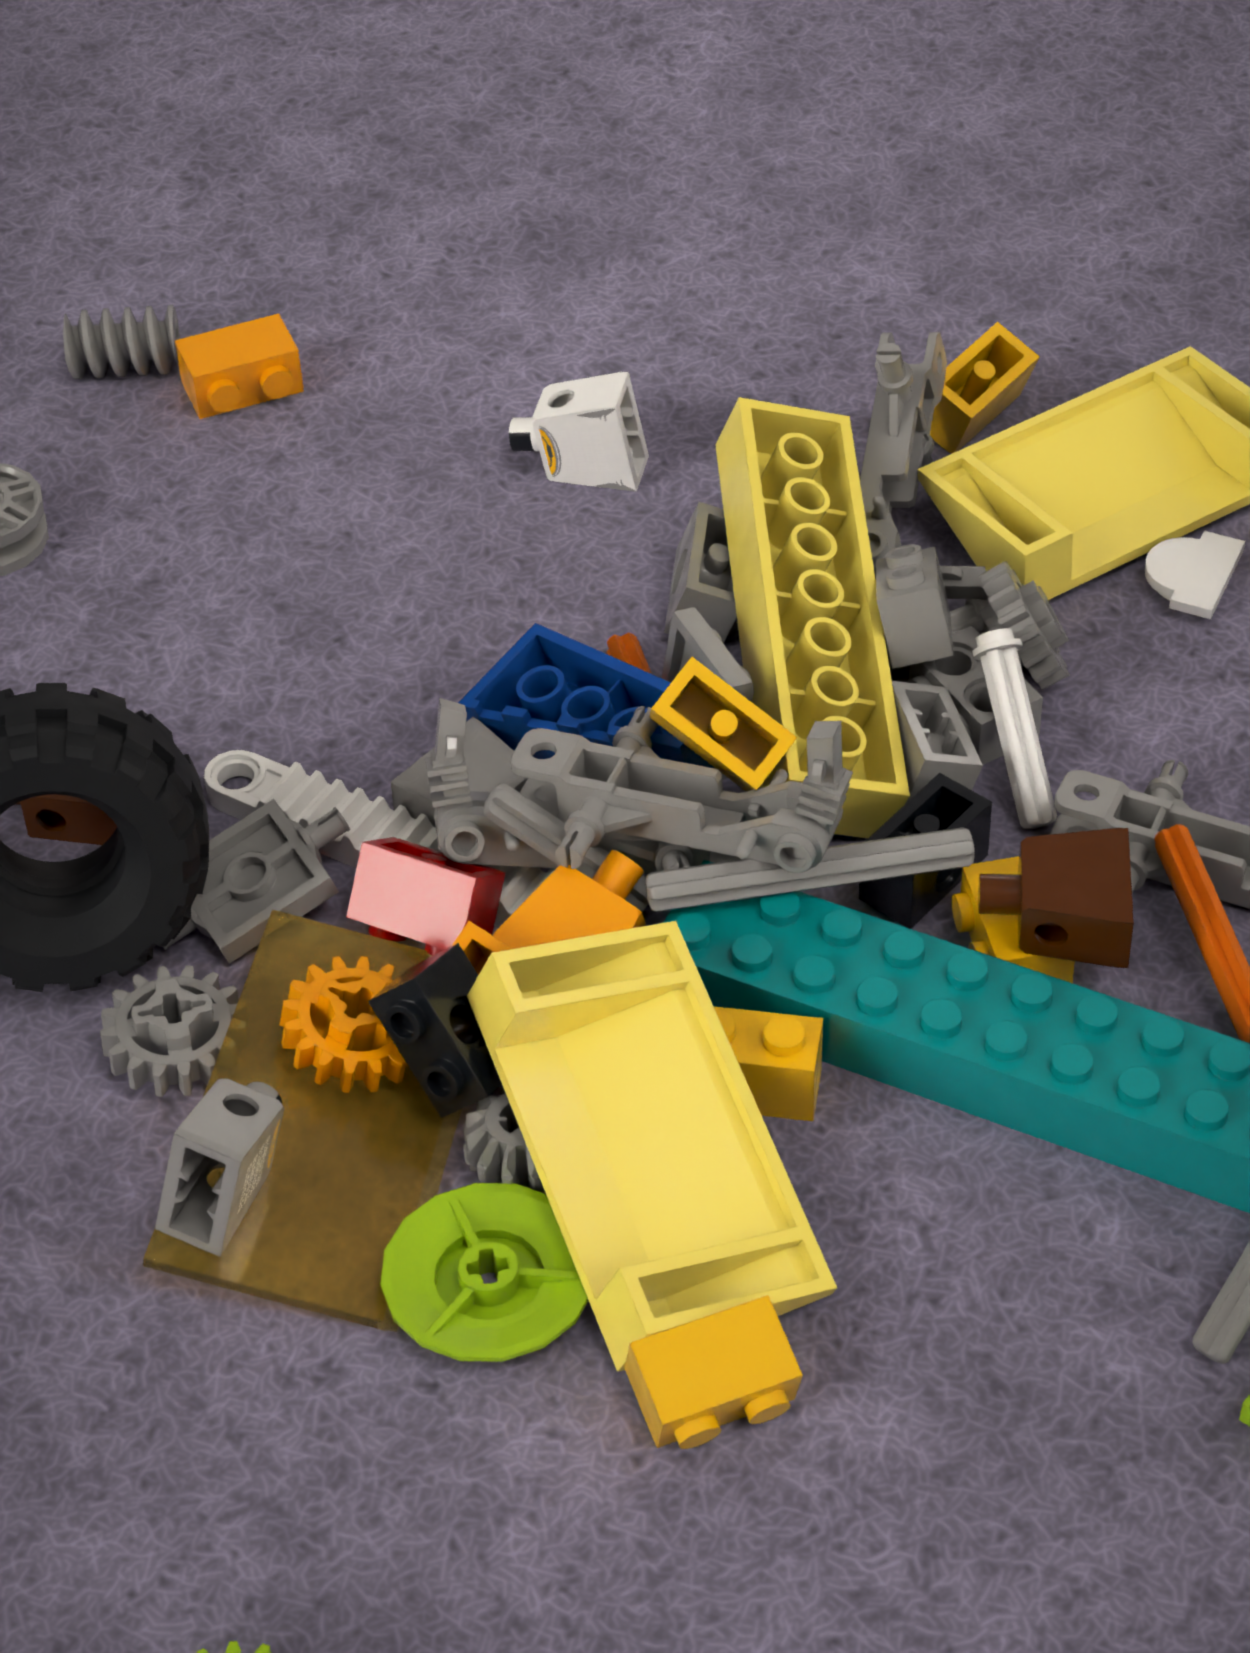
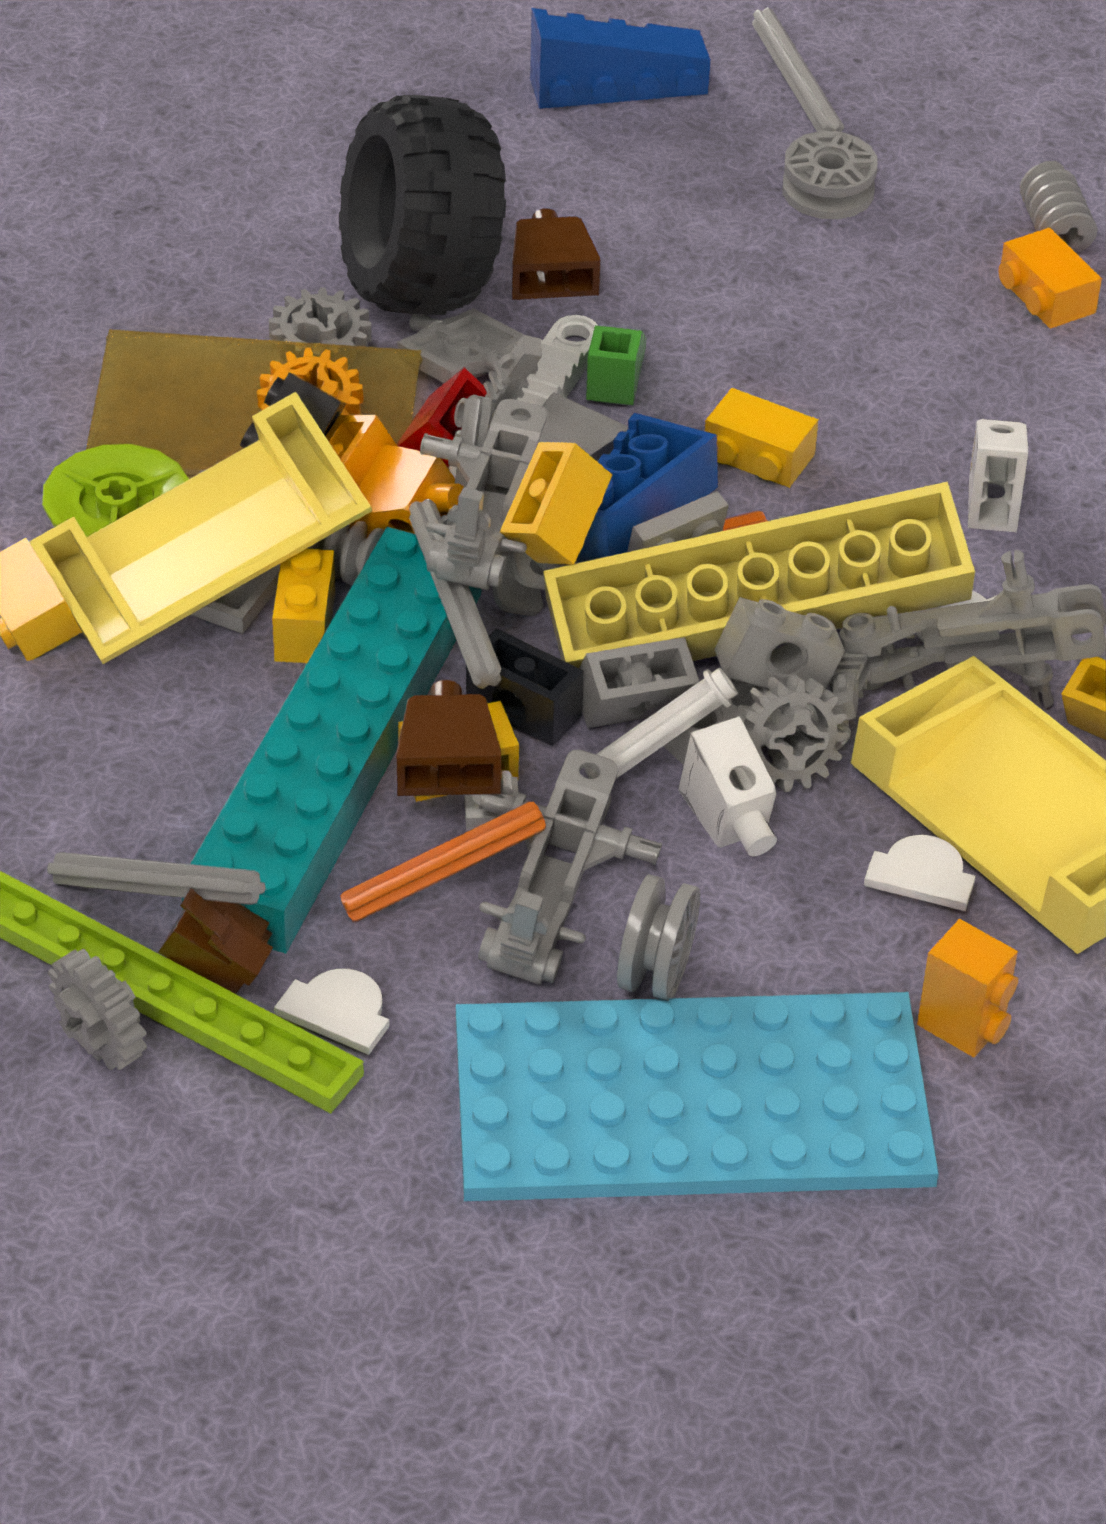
camera: 80 degrees right, 0 degrees up
(227, 1129) = (167, 333): light grey torso -> none
(321, 727) = (614, 364): none -> bright green slope
(478, 621) = (762, 437): none -> yellow brick
(1099, 689) = (729, 787): none -> white torso

